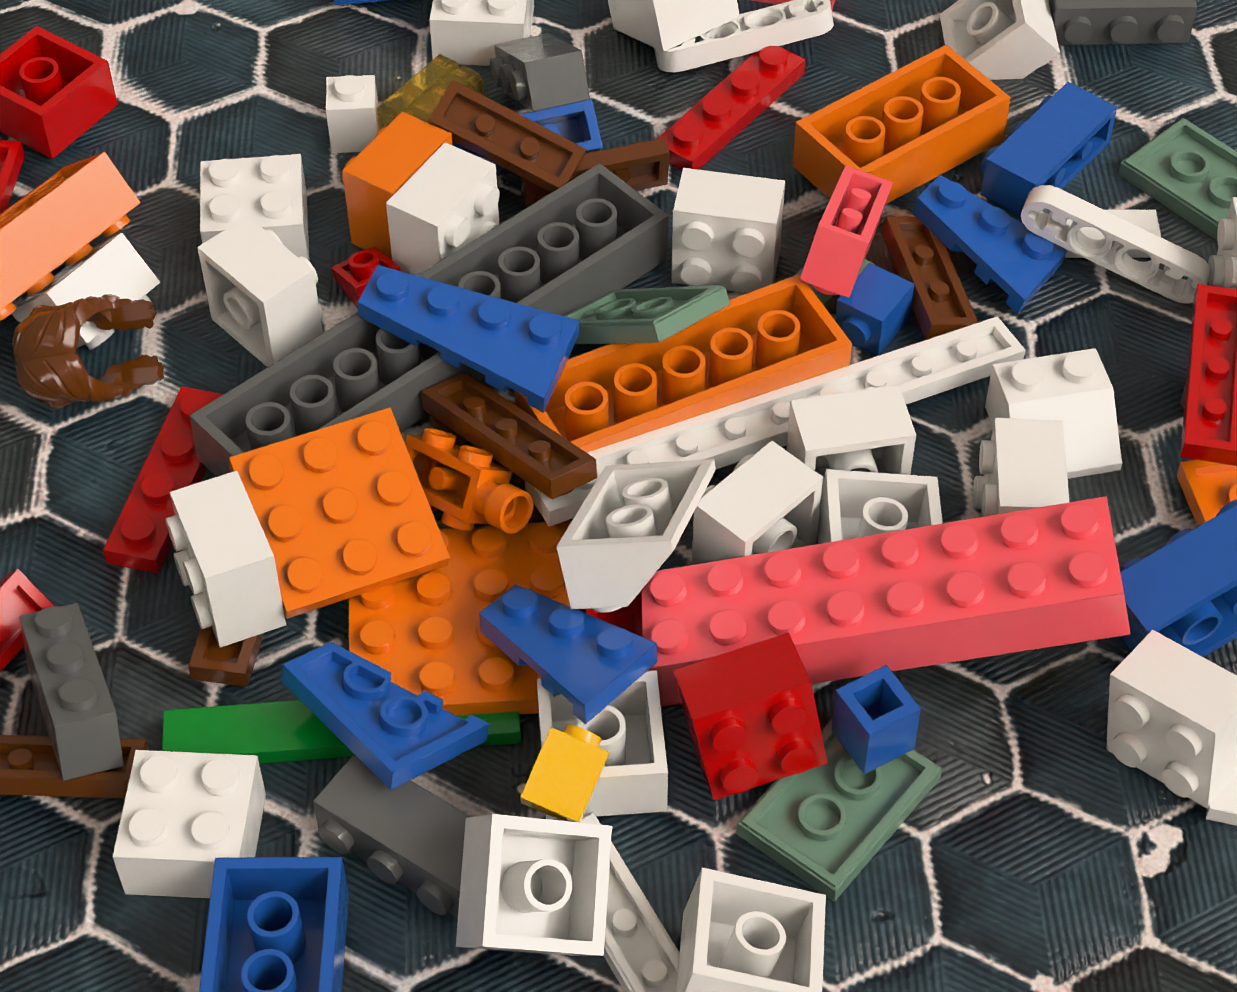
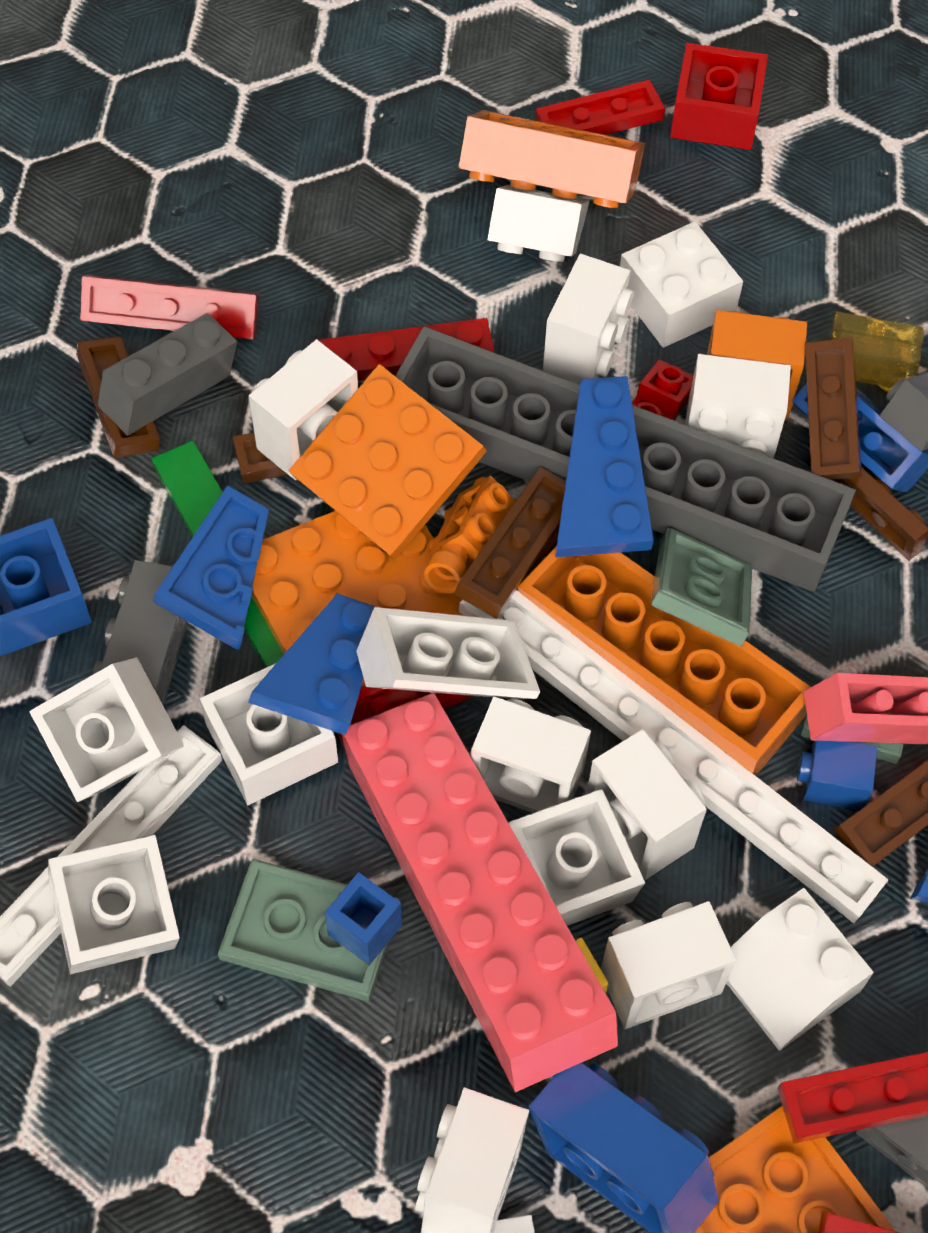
camera: 65 degrees right, 10 degrees up
(48, 360) = (457, 223): reddish brown hair -> none
(183, 816) = (98, 498): white brick -> none
(351, 112) = (823, 294): white brick -> none
(565, 773) = (192, 706): yellow brick -> none
(726, 230) = (846, 616): white brick -> none
(751, 716) = (324, 822): red brick -> none

